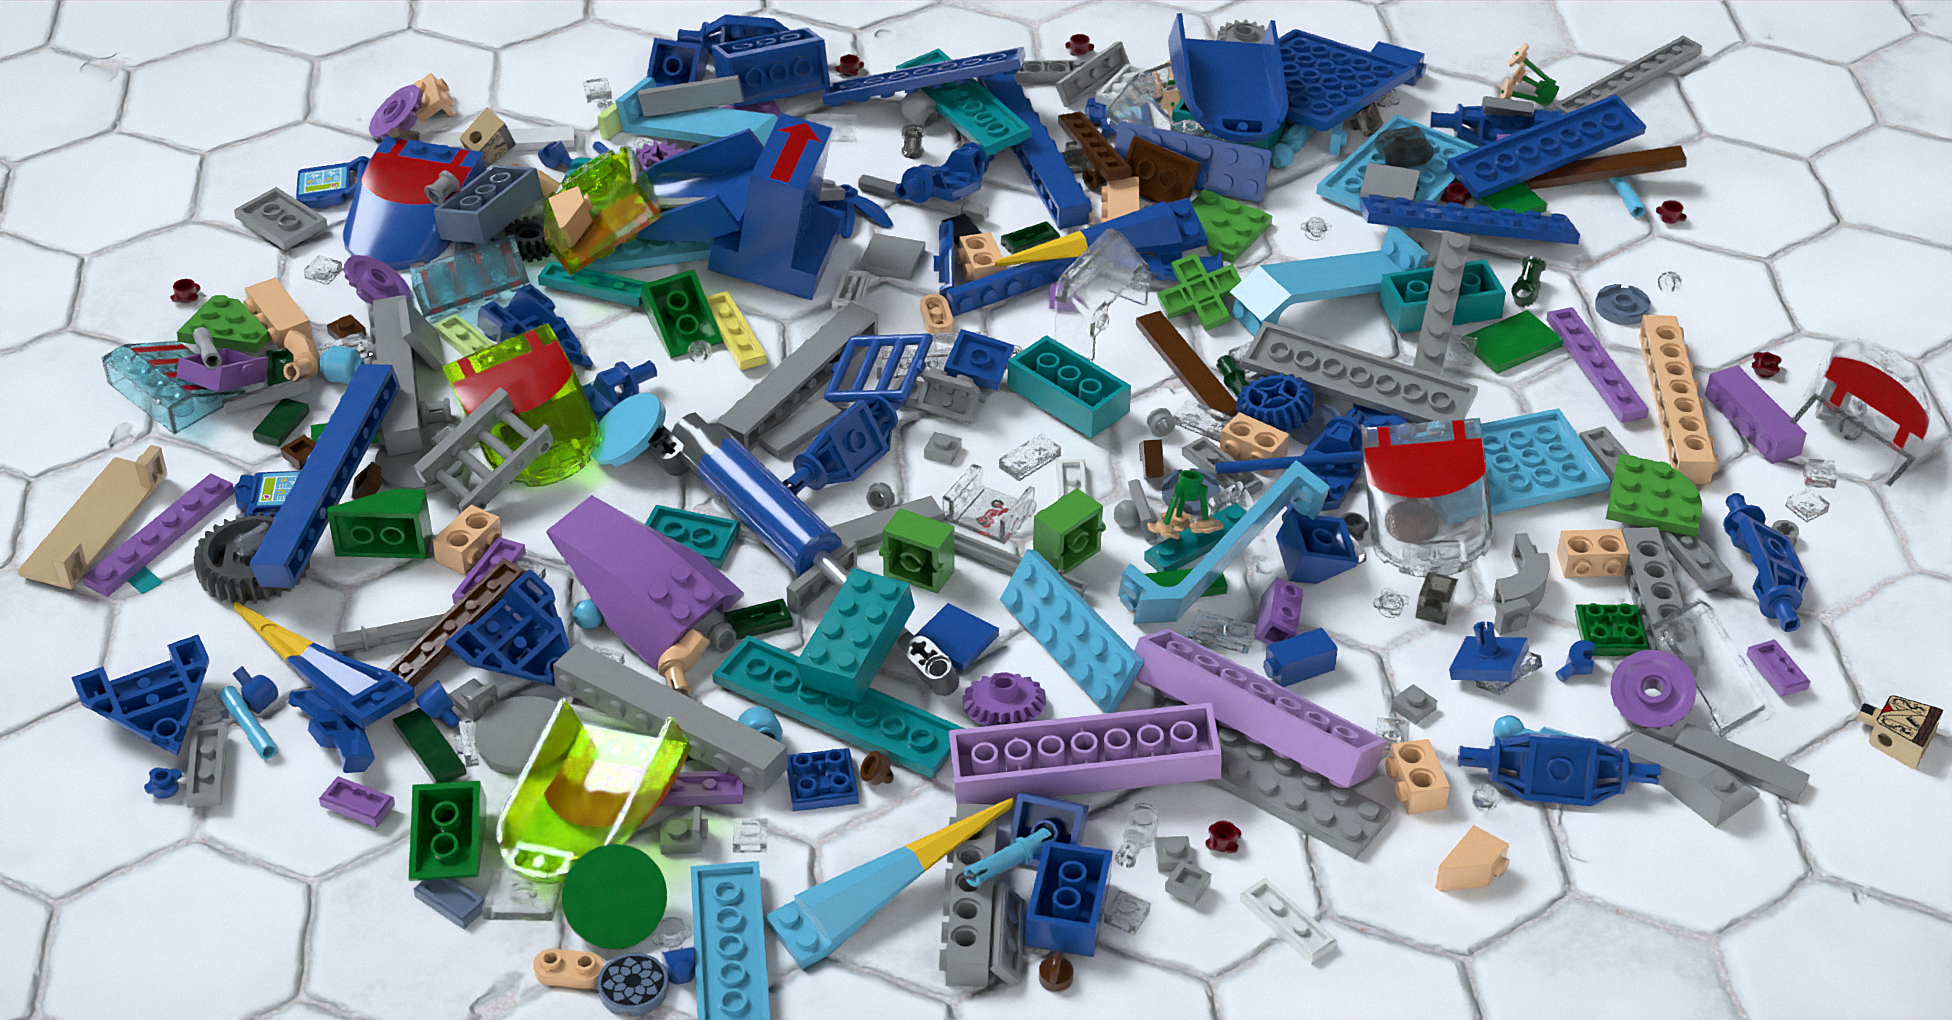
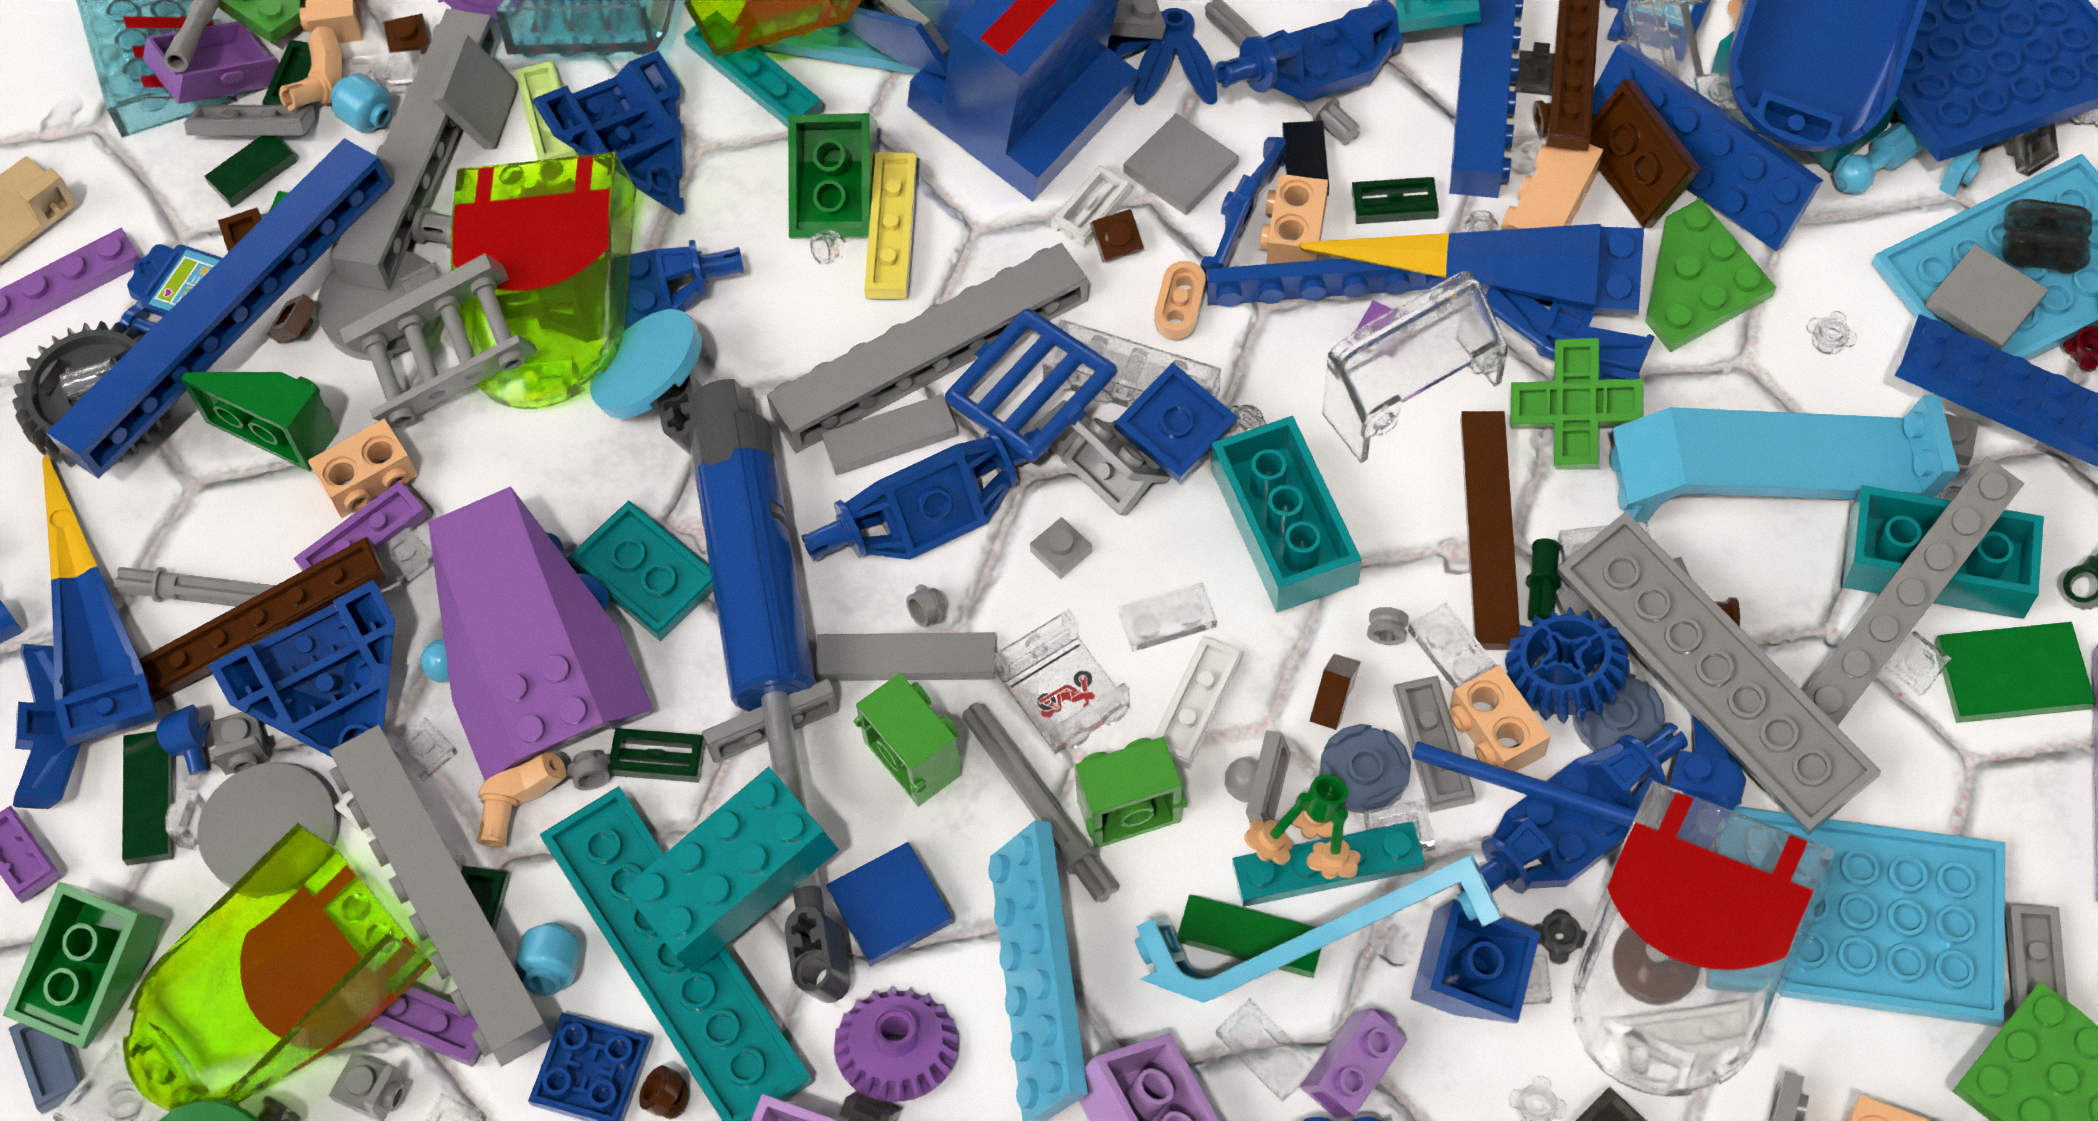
camera: 30 degrees right, 20 degrees up
(877, 296) = (1116, 235): none -> reddish brown plate

